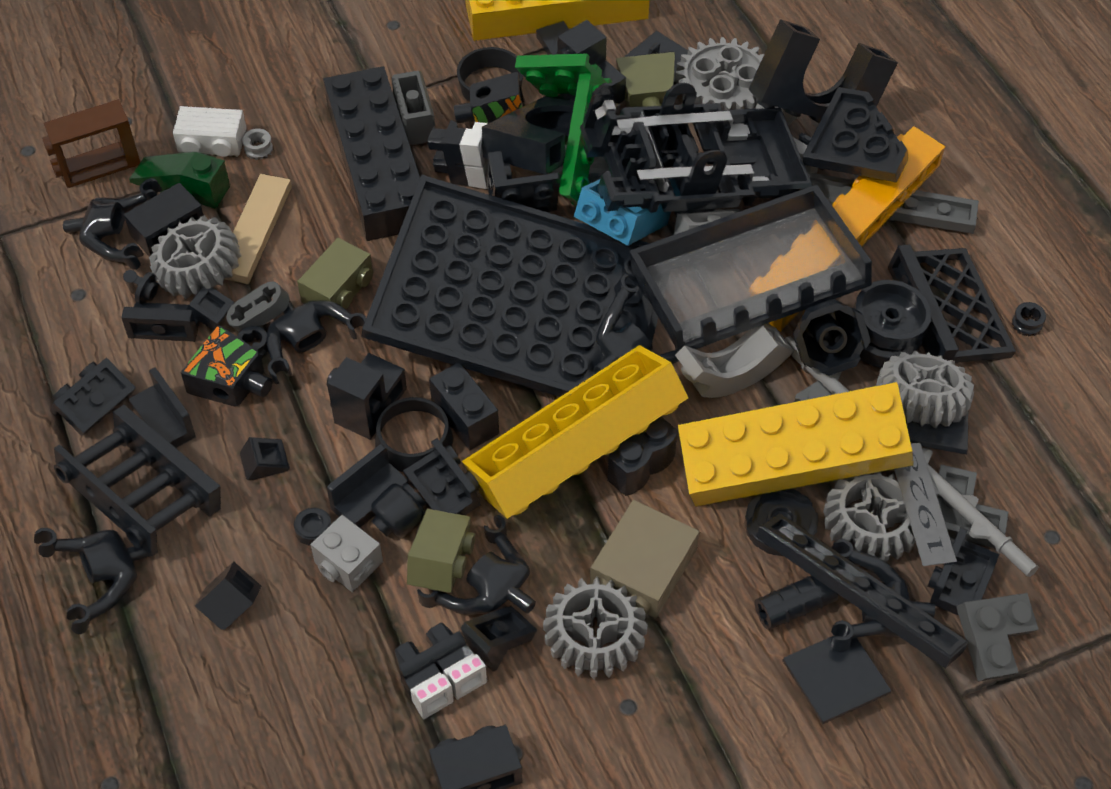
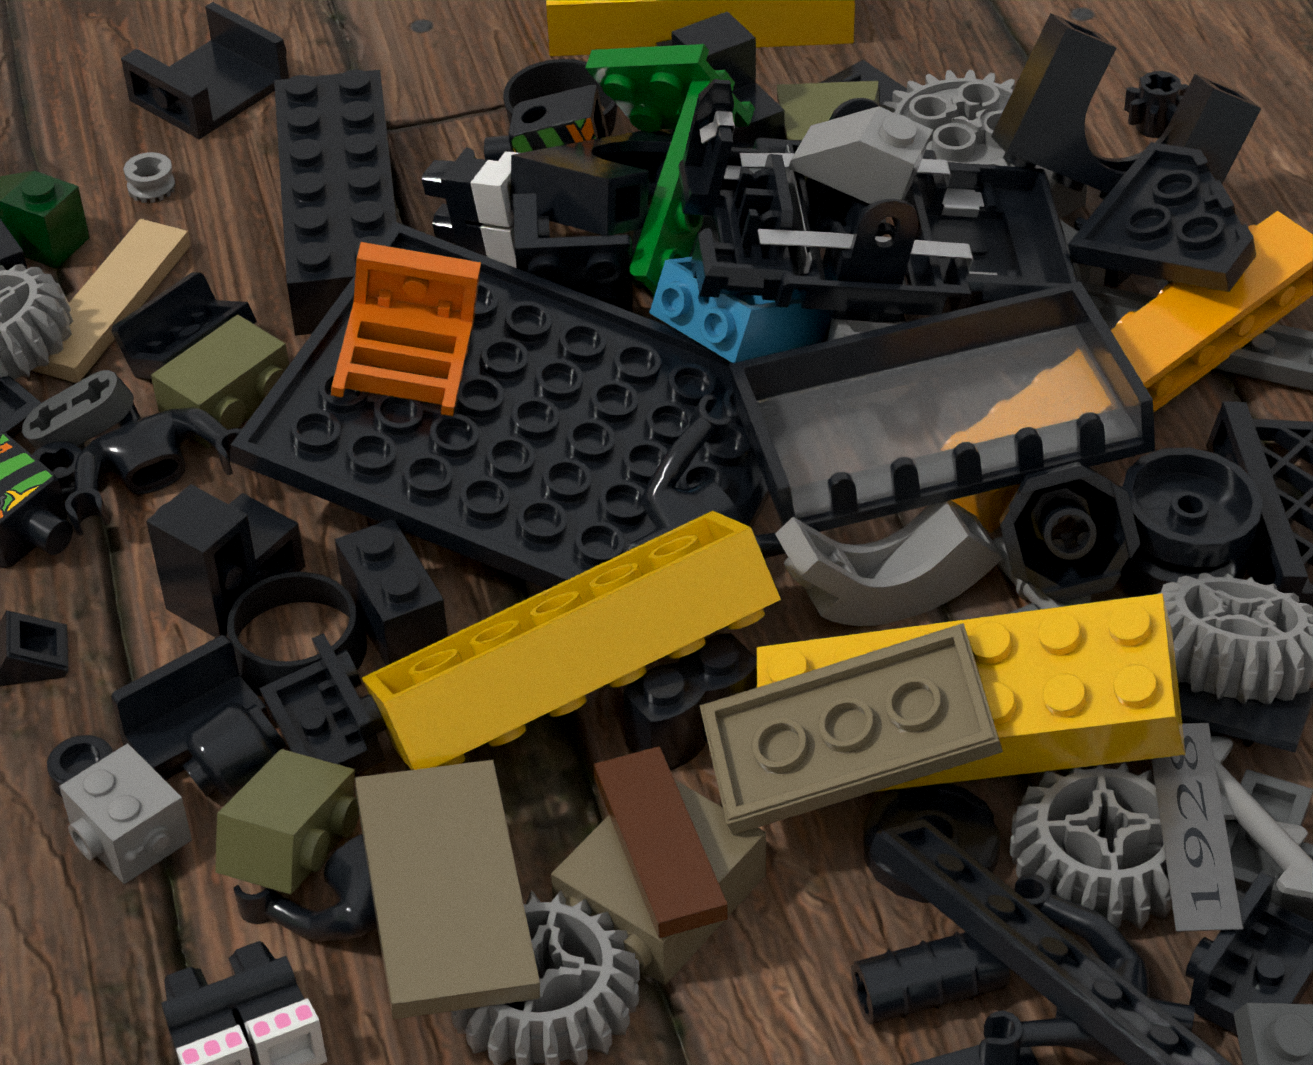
camera: 10 degrees right, 10 degrees down
(209, 131) = (75, 148): white brick -> none
(279, 72) = (212, 80): none -> black panel
(301, 245) = (173, 324): none -> black bracket
(413, 106) = (414, 131): dark grey brick -> none
(451, 231) = (412, 303): none -> orange plate
(496, 633) = (340, 975): black slope -> none
(538, 584) = (445, 890): none -> dark tan tile
(646, 544) = (660, 842): none -> reddish brown tile
(688, 117) = (864, 154): none -> light grey slope
(738, 471) = (849, 729): none -> dark tan tile
(831, 51) = (1154, 102): none -> black gear

